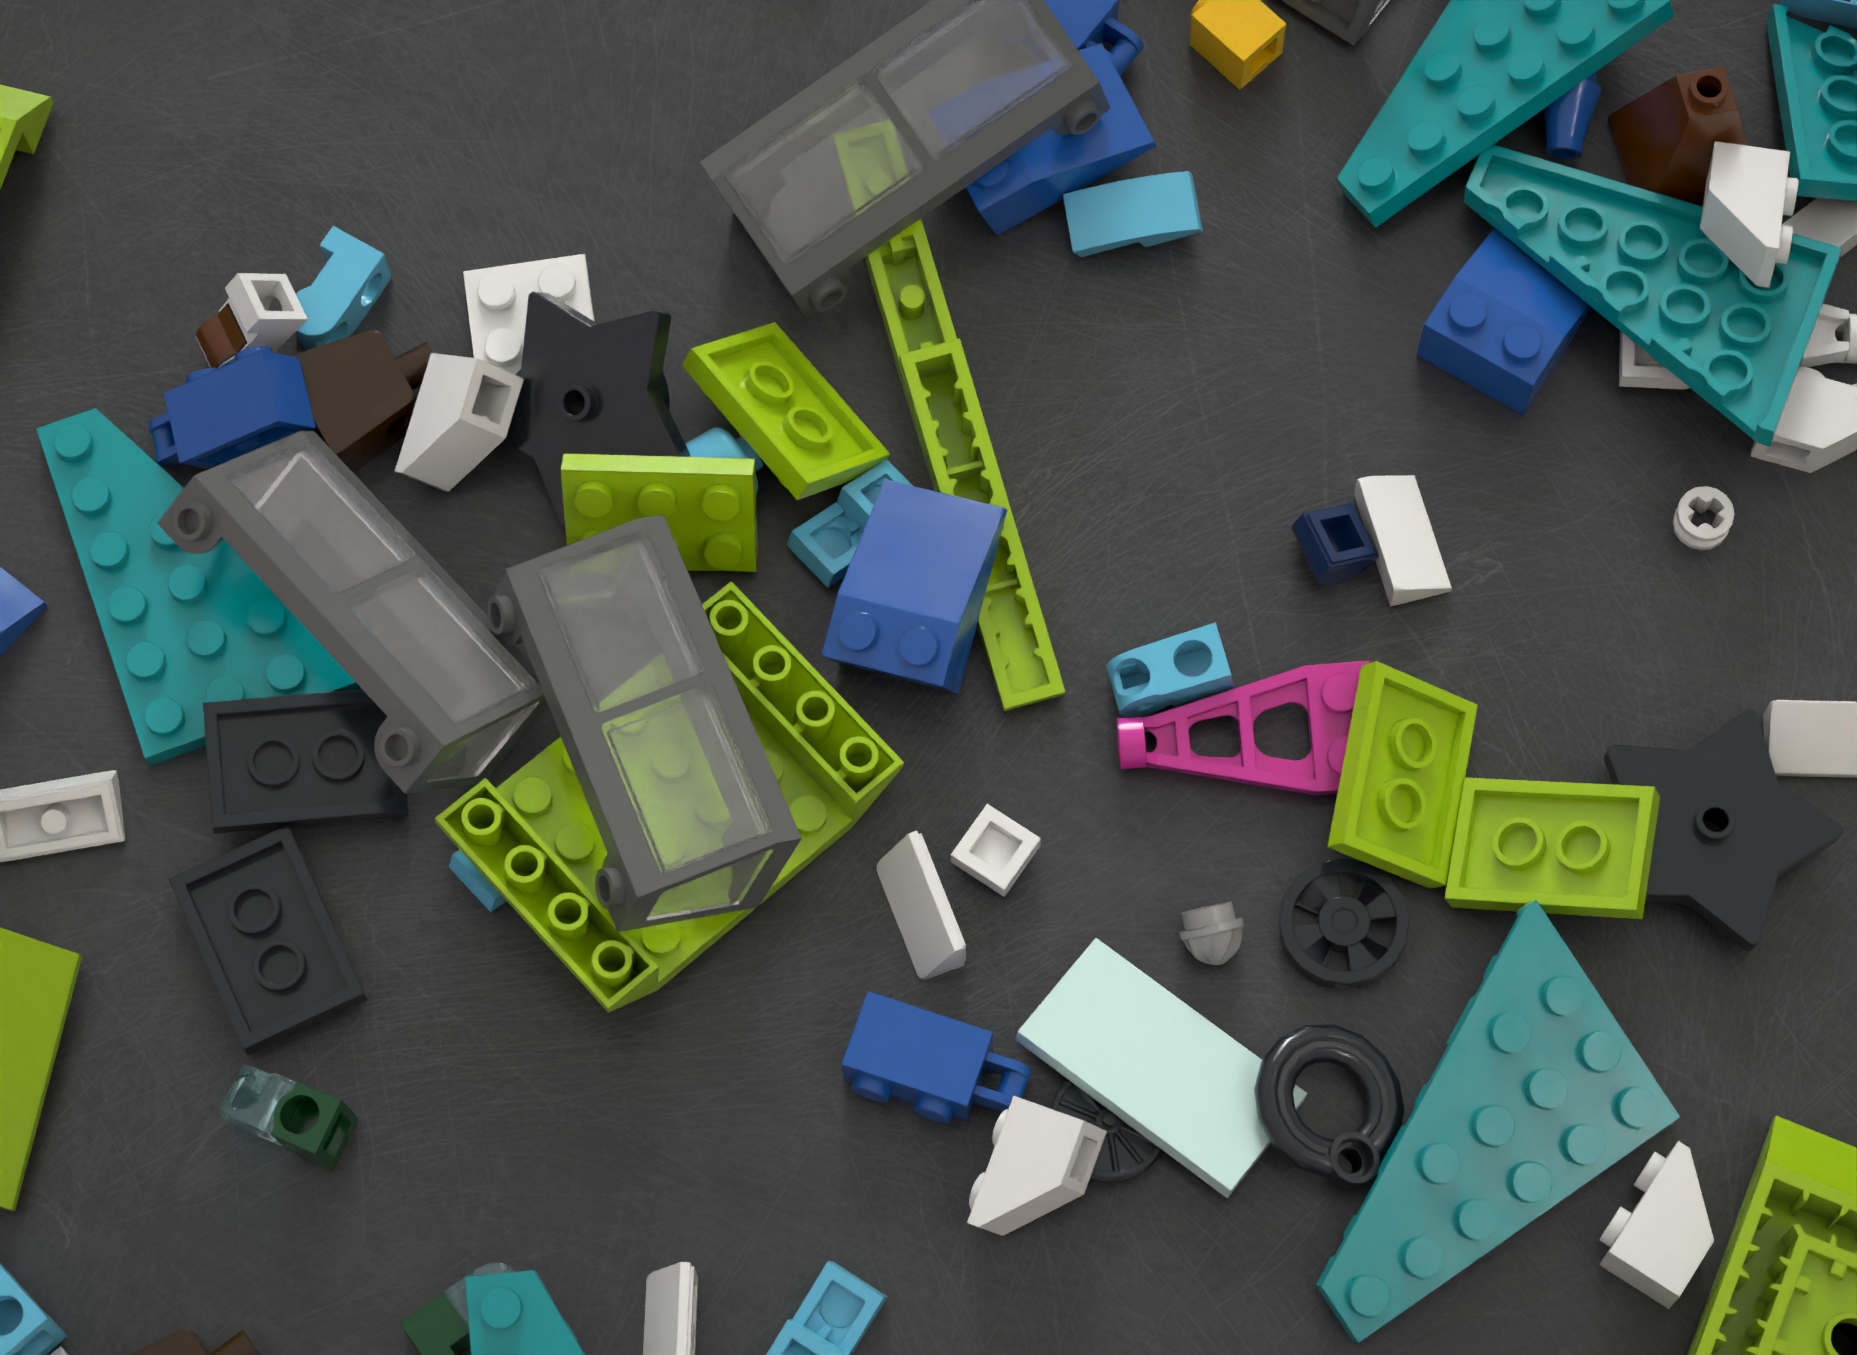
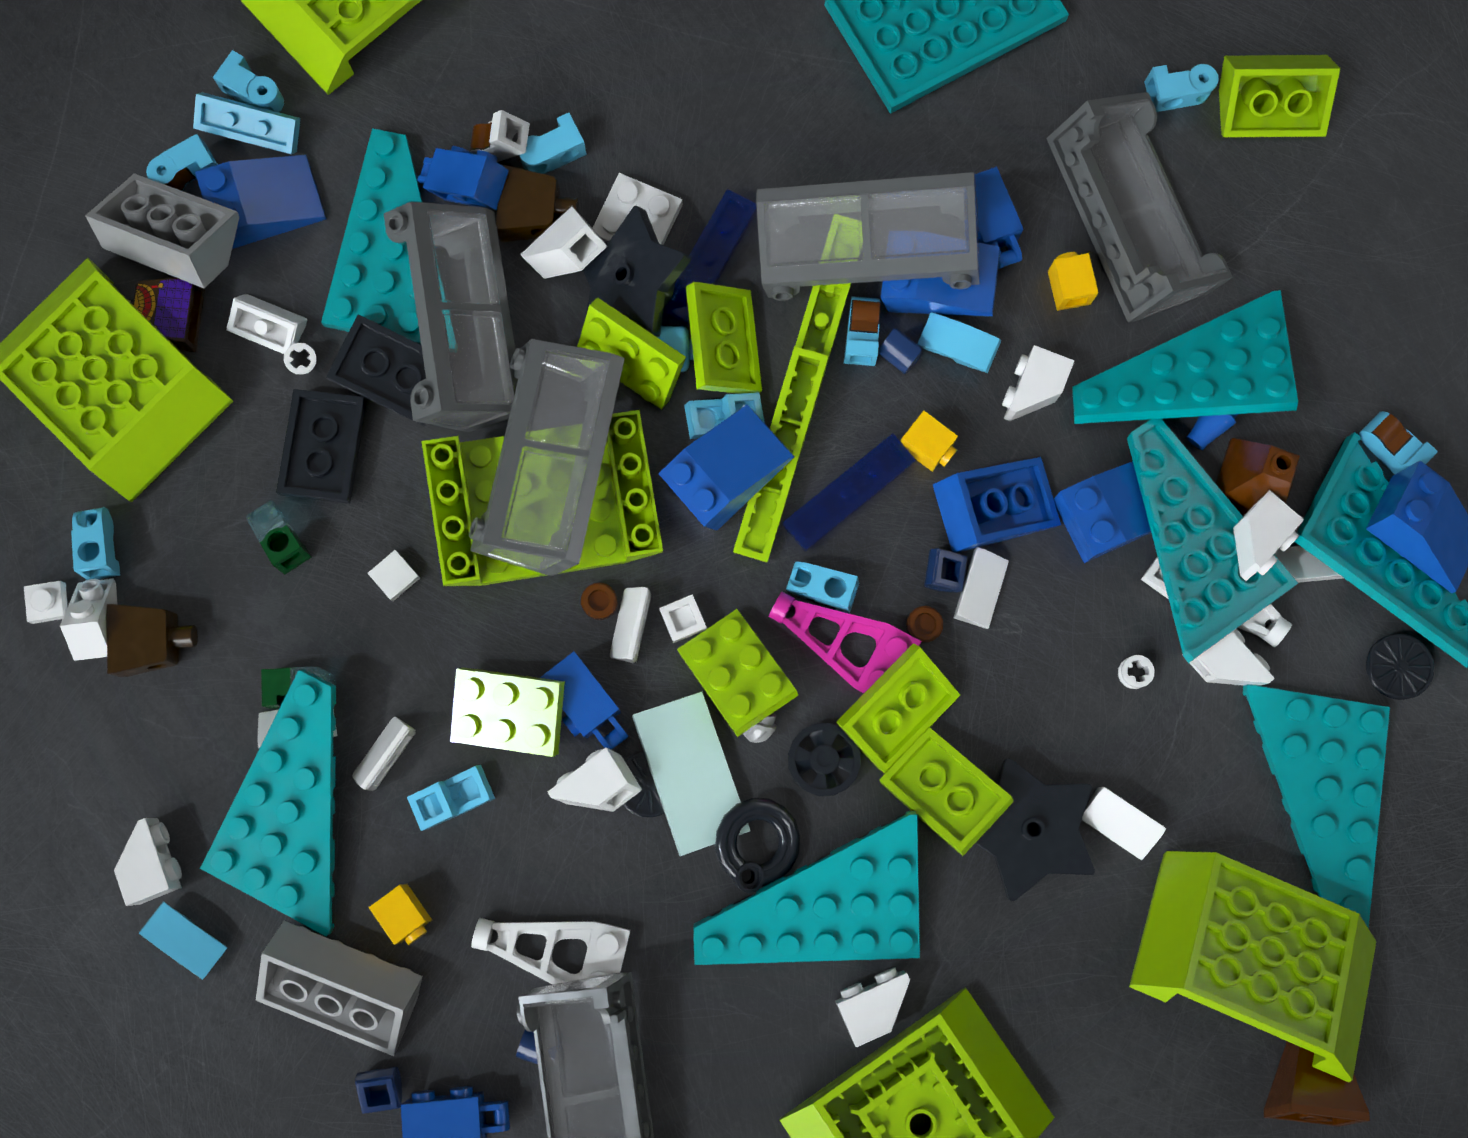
camera: 30 degrees right, 10 degrees up
(160, 845) = (301, 369): none -> white bush
(508, 1063) = (393, 575): none -> white tile
(682, 287) = (712, 249): none -> clear blue plate
(824, 1146) = (507, 711): none -> plate
(850, 906) = (599, 601): none -> reddish brown tile
(981, 282) = (862, 332): none -> leg
(1056, 274) = (900, 351): none -> dark blue brick
(1117, 520) = (849, 492): none -> clear blue plate
(1131, 873) = (737, 672): none -> lime plate
(1186, 376) = (930, 442): none -> yellow brick
(1286, 199) = (1039, 384): none -> white slope
(1341, 406) = (996, 504): none -> blue slope
(1355, 636) = (924, 624): none -> reddish brown tile

